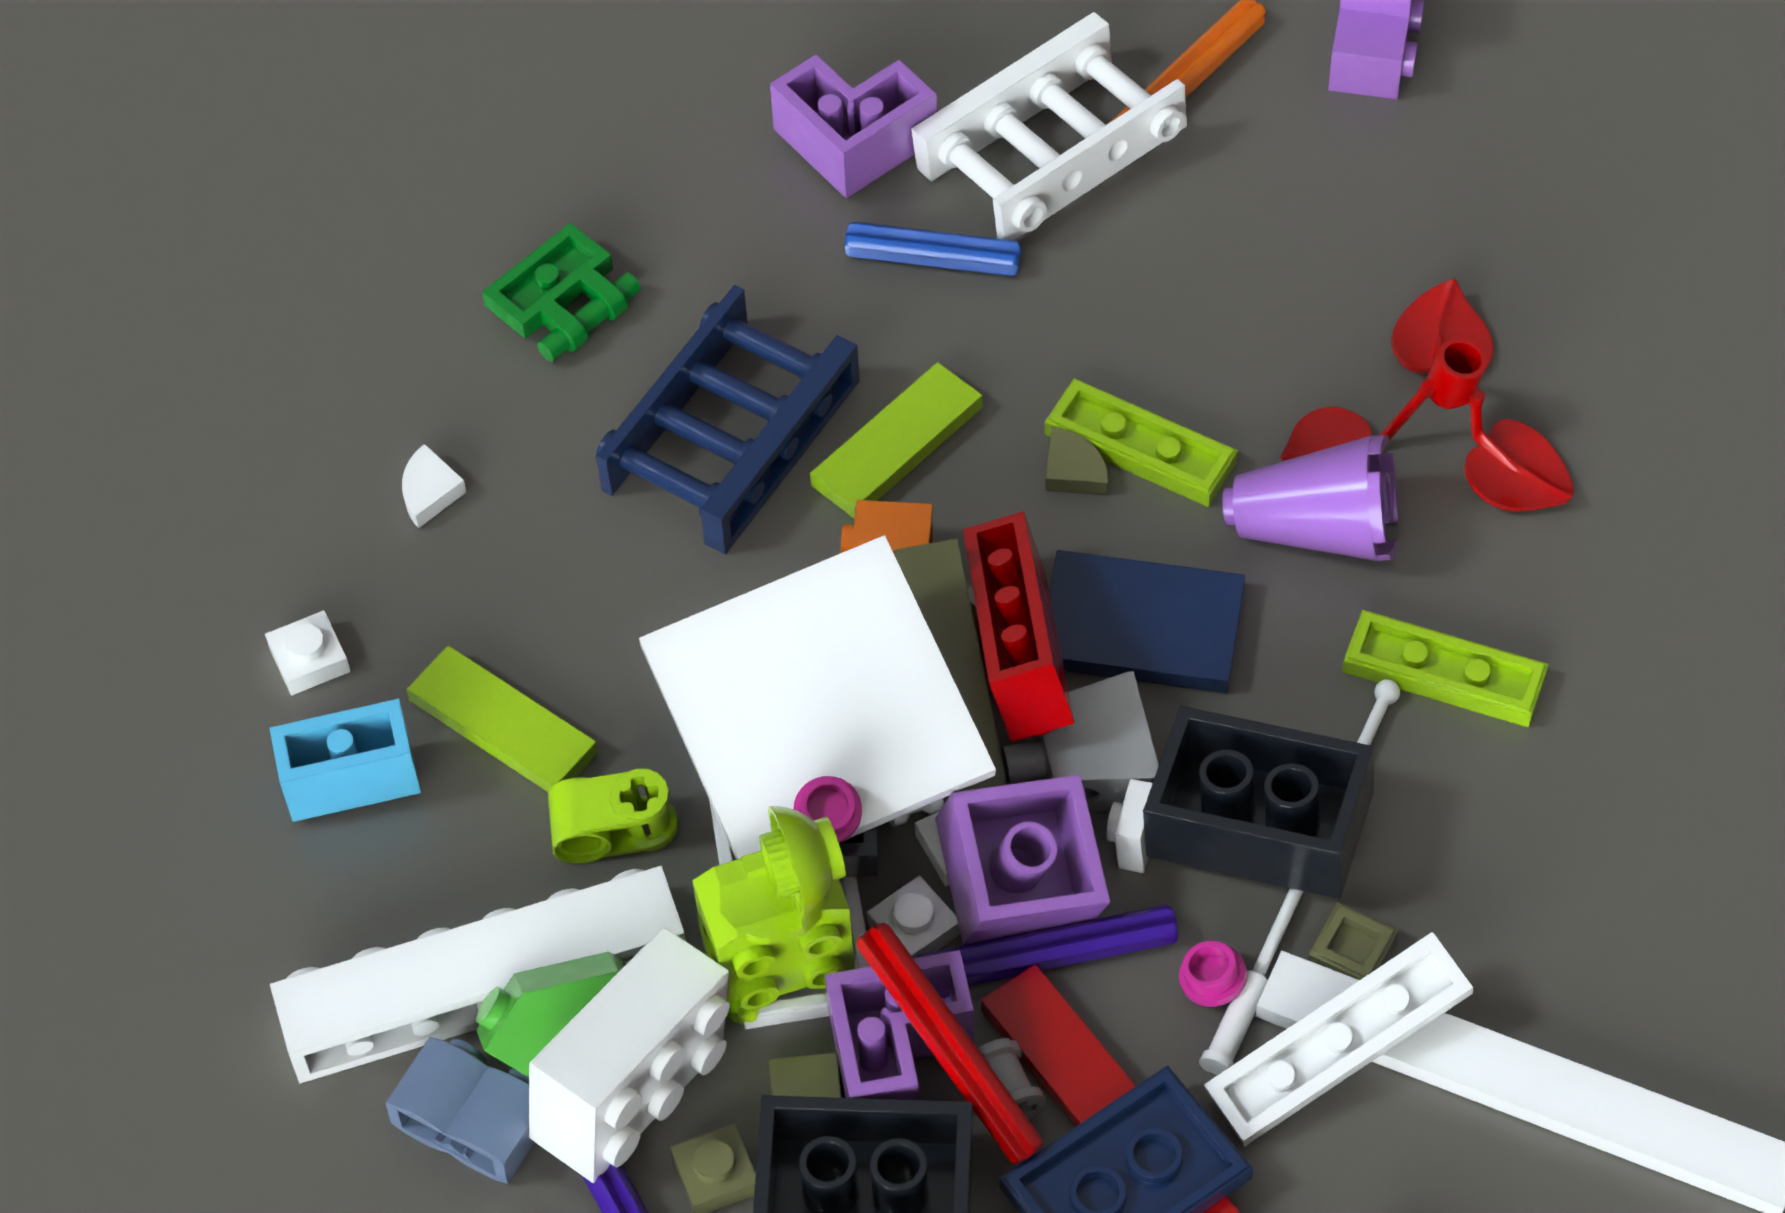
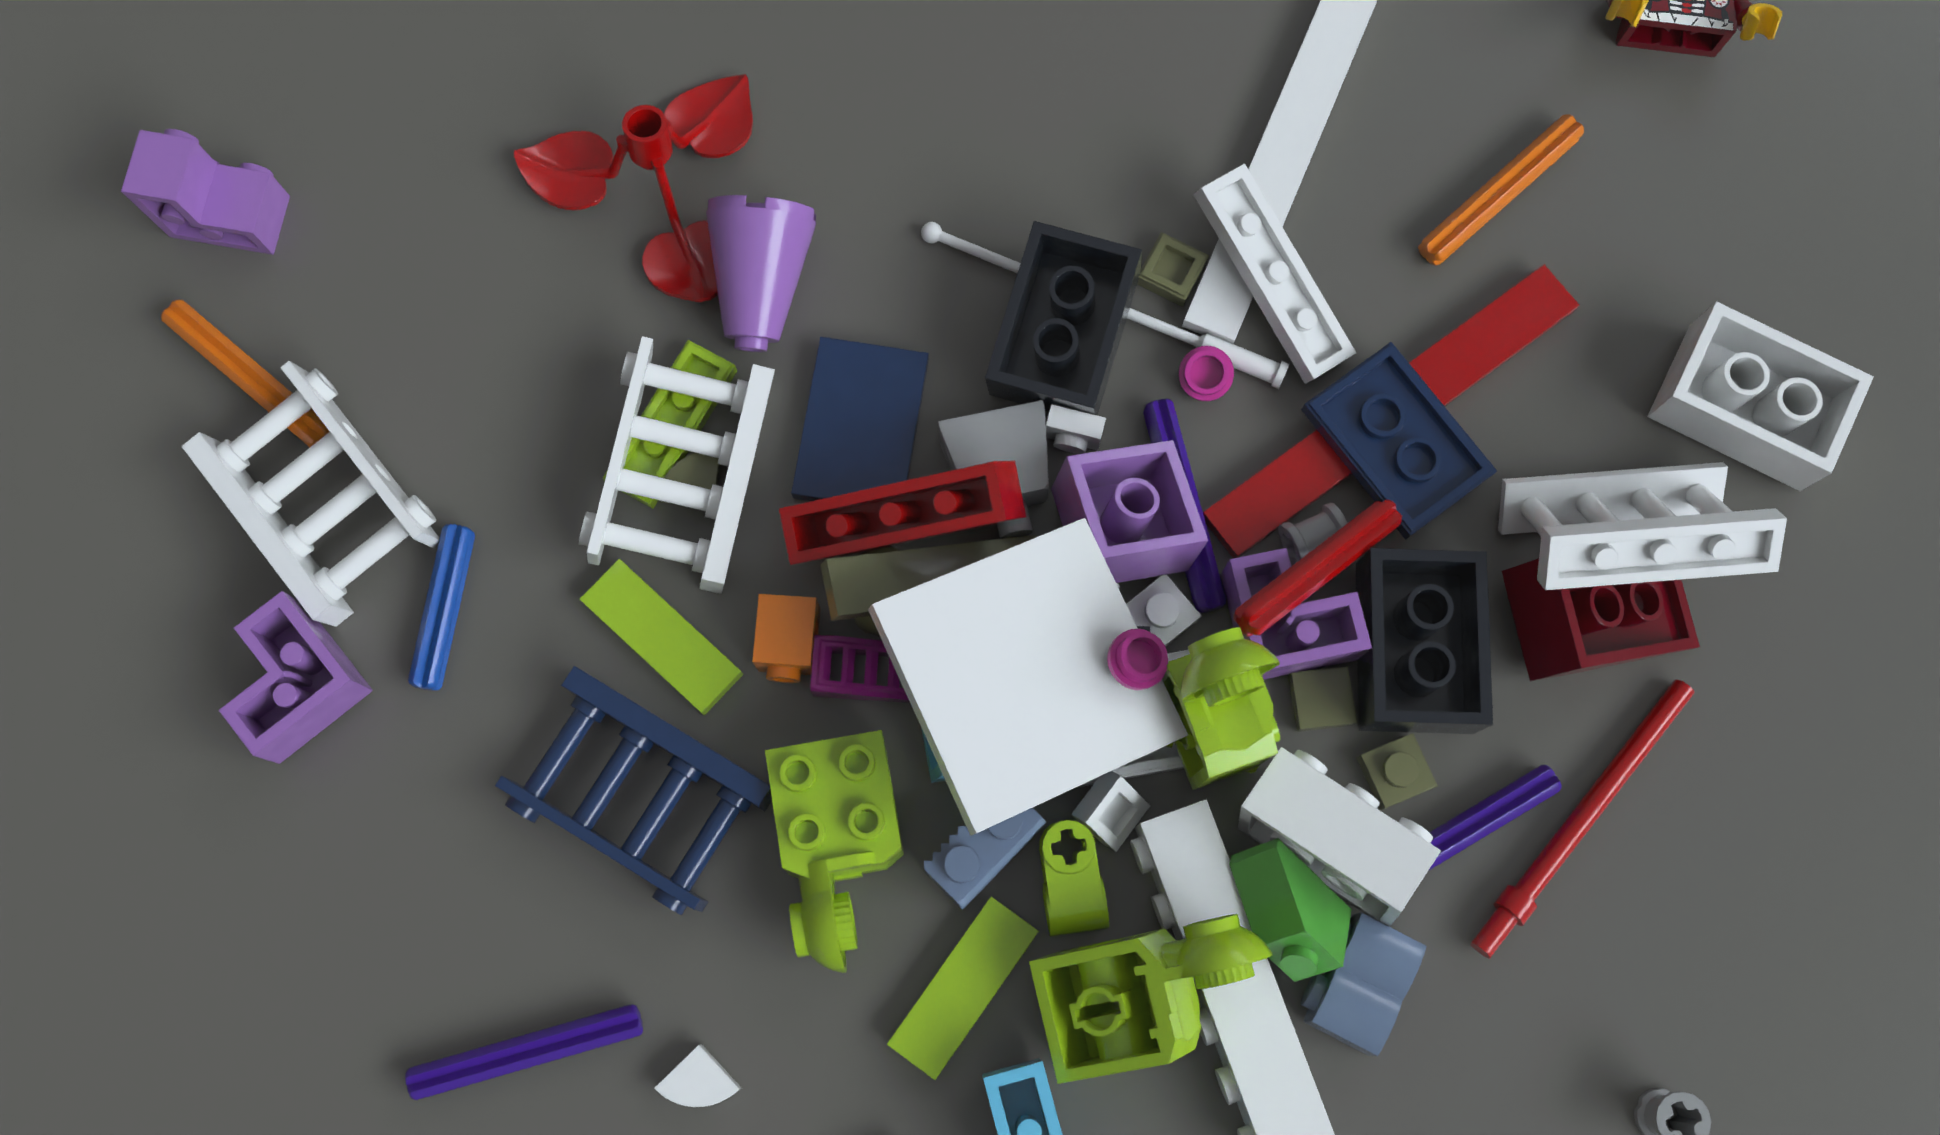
camera: 95 degrees left, 20 degrees up
(470, 847) = (1135, 996): none -> lime brick
(472, 341) = (523, 1052): none -> dark purple axle
(550, 280) = (461, 977): green plate -> none
(634, 720) = (973, 861): none -> sand blue brick
(657, 571) = (832, 826): none -> lime brick
(683, 851) = (1111, 810): none -> white plate
(1101, 494) = (719, 502): none -> white fence
(1445, 668) = (908, 187): lime tile -> none

